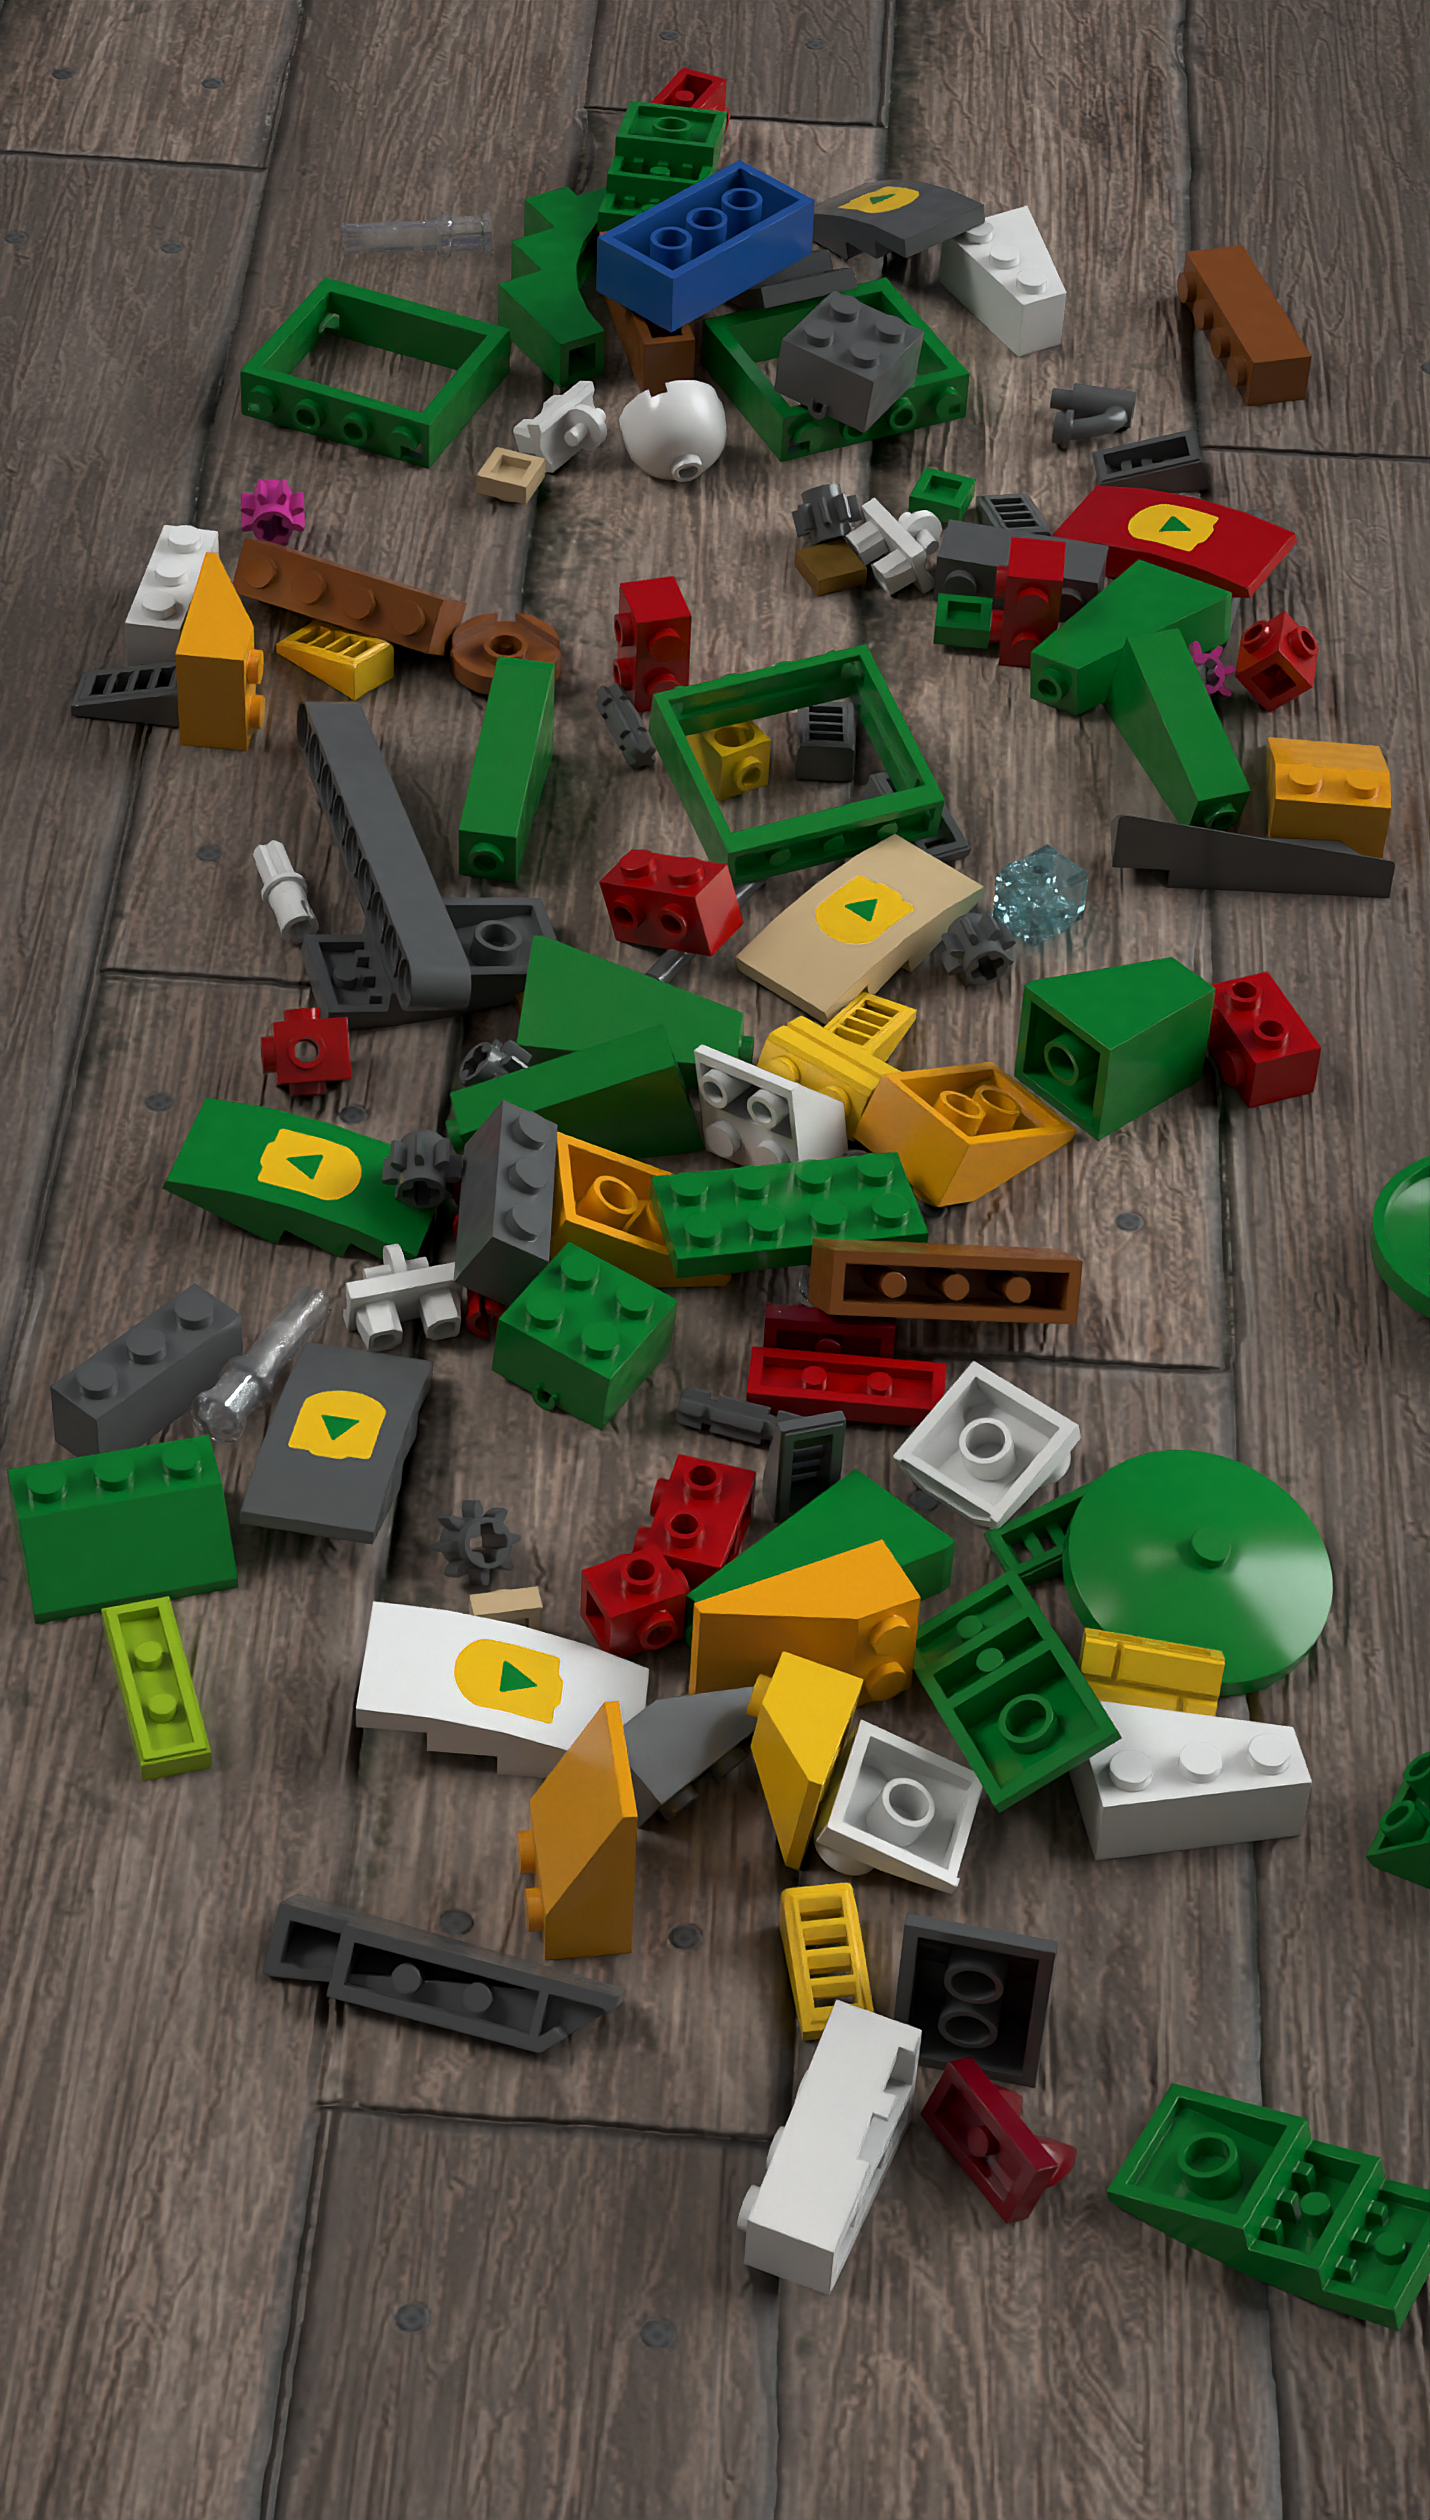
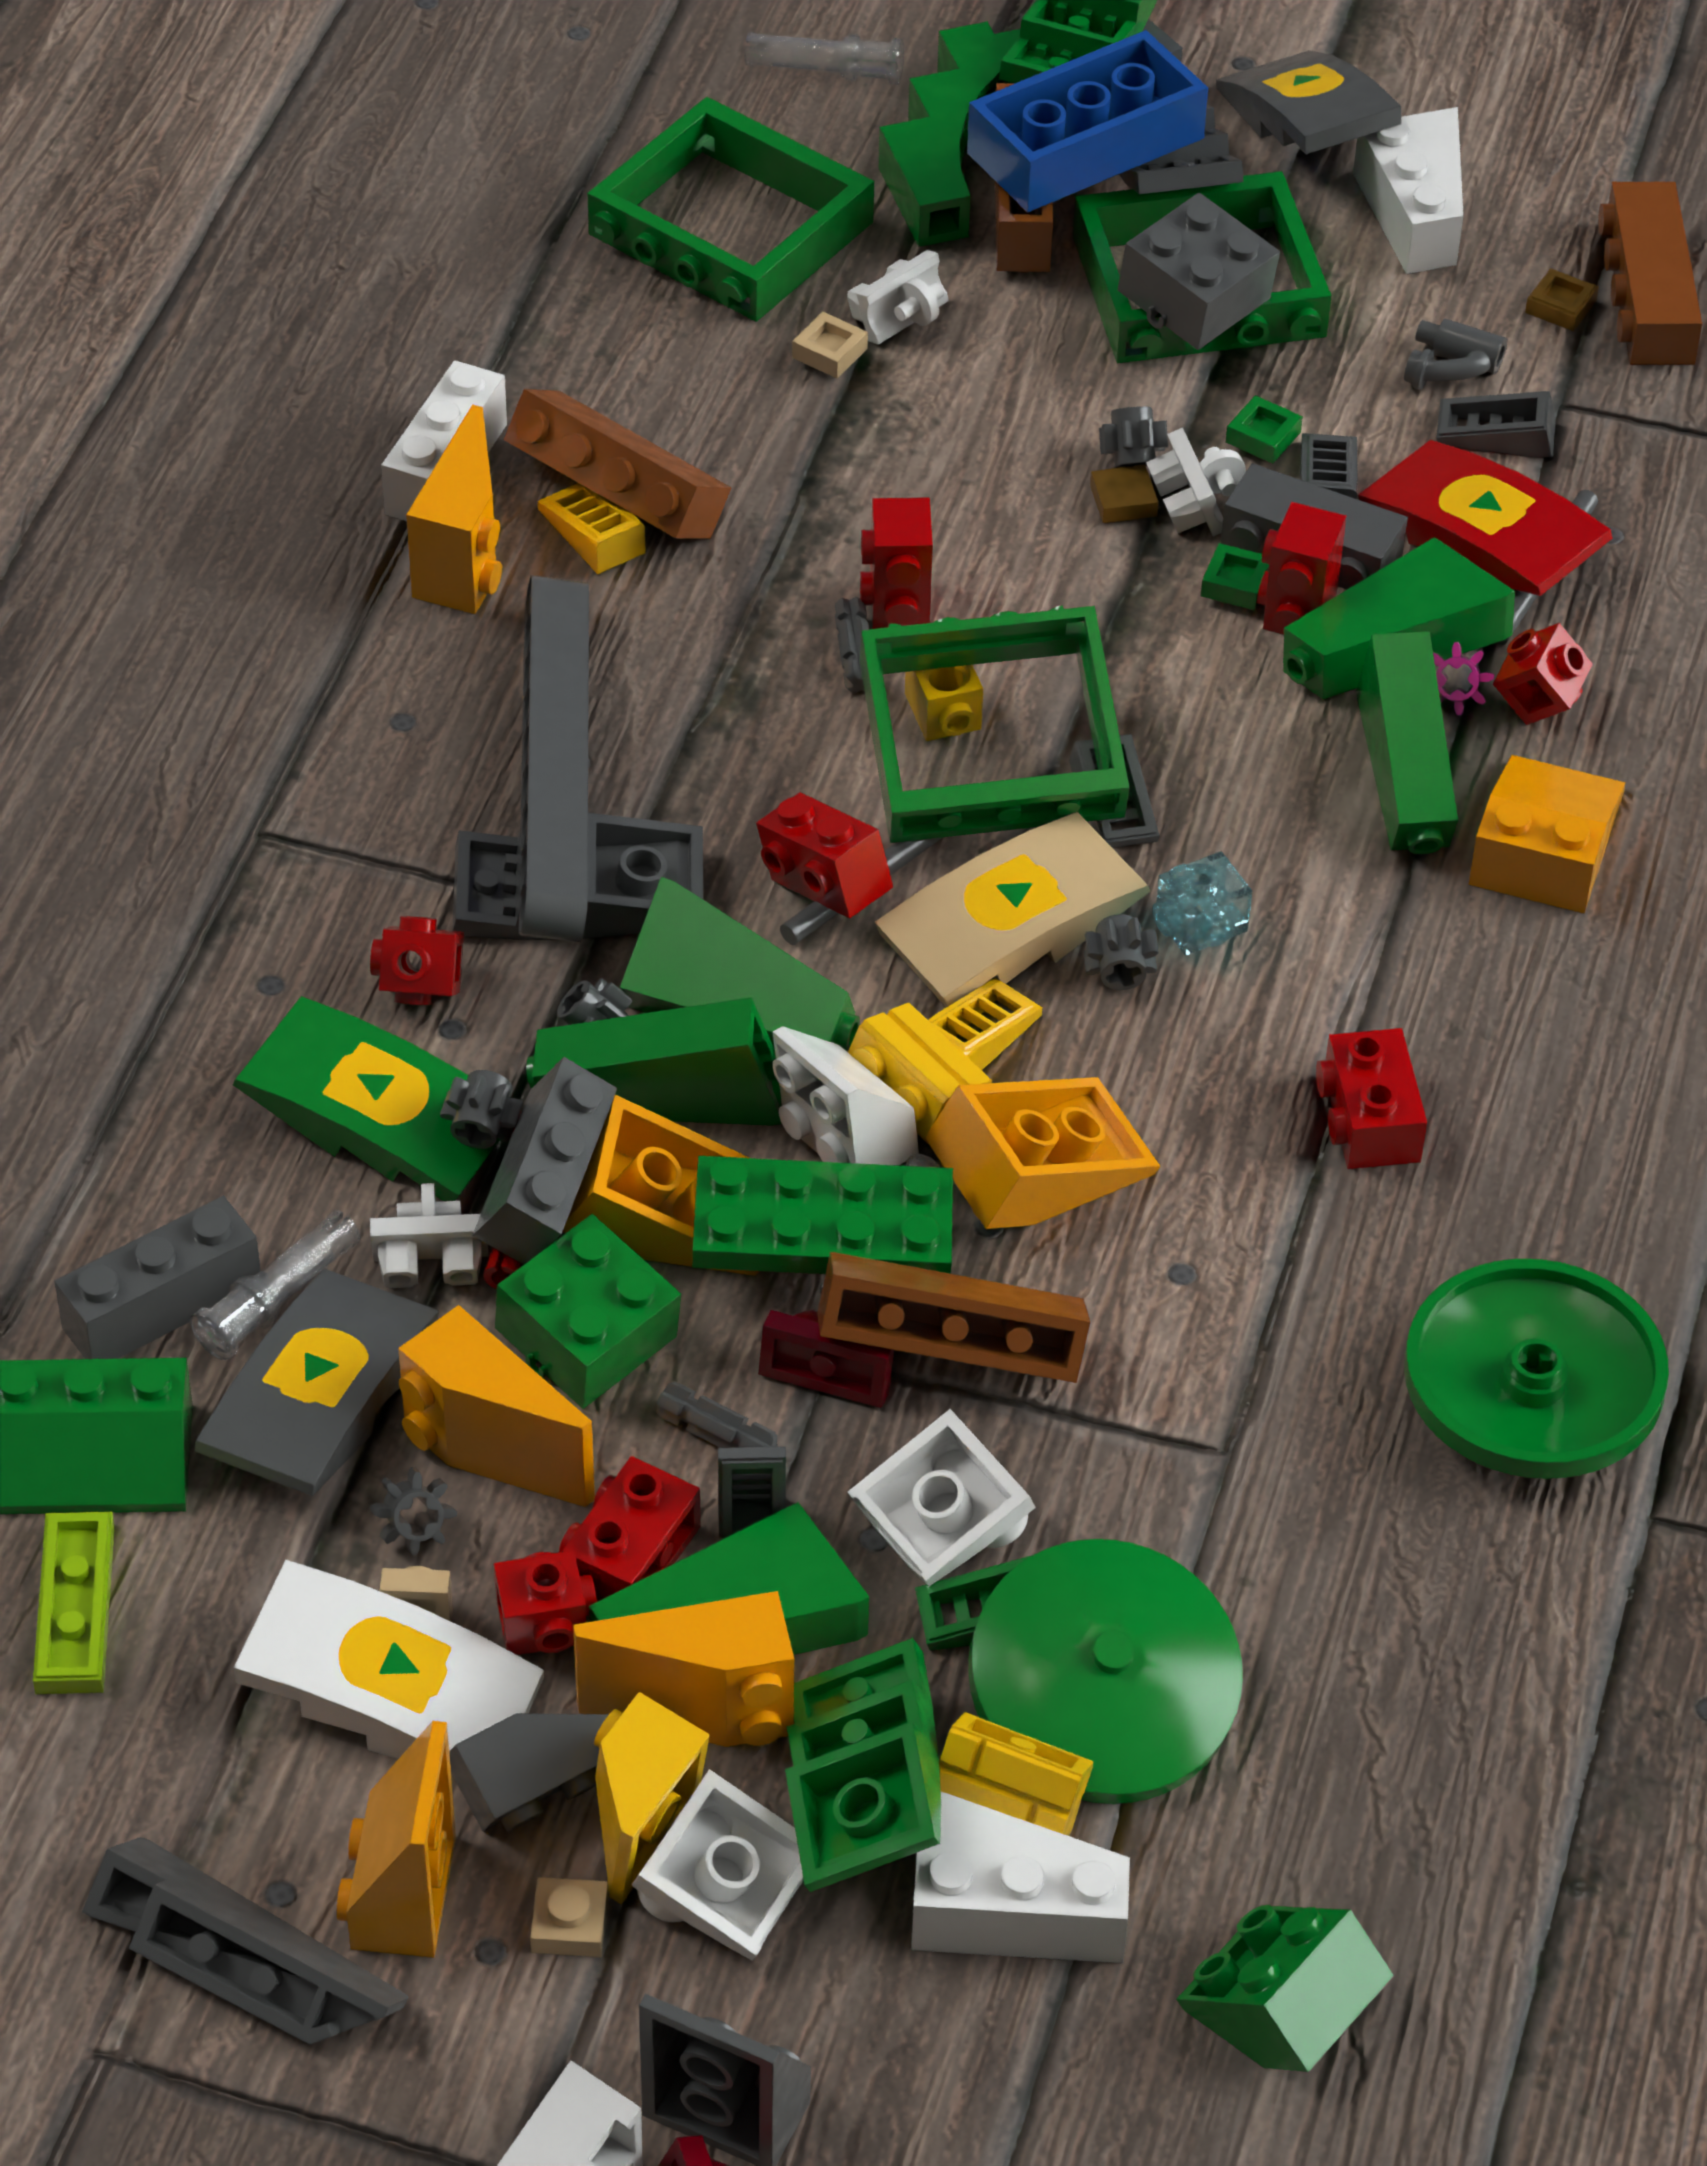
camera: 15 degrees right, 5 degrees up
(130, 694) = (382, 552): dark grey slope -> none
(272, 511) = (575, 355): dark pink gear -> none
(285, 892) = (456, 779): white axle -> none
(483, 639) = (758, 572): dark orange plate -> none
(508, 769) = (711, 682): green slope -> none
(533, 1437) = (493, 1412): none -> light orange slope
(675, 430) = (1008, 320): white cylinder -> none
(751, 1887) = (569, 1917): none -> tan plate
(816, 1918) = (617, 1962): yellow slope -> none
(825, 742) = (1046, 700): dark grey slope -> none
(858, 1385) = (827, 1406): red plate -> none
(1113, 1040) = (1219, 1080): green slope -> none
(1168, 359) = (1561, 299): none -> pearl gold tile
(1240, 862) = (1438, 894): dark grey wedge -> none

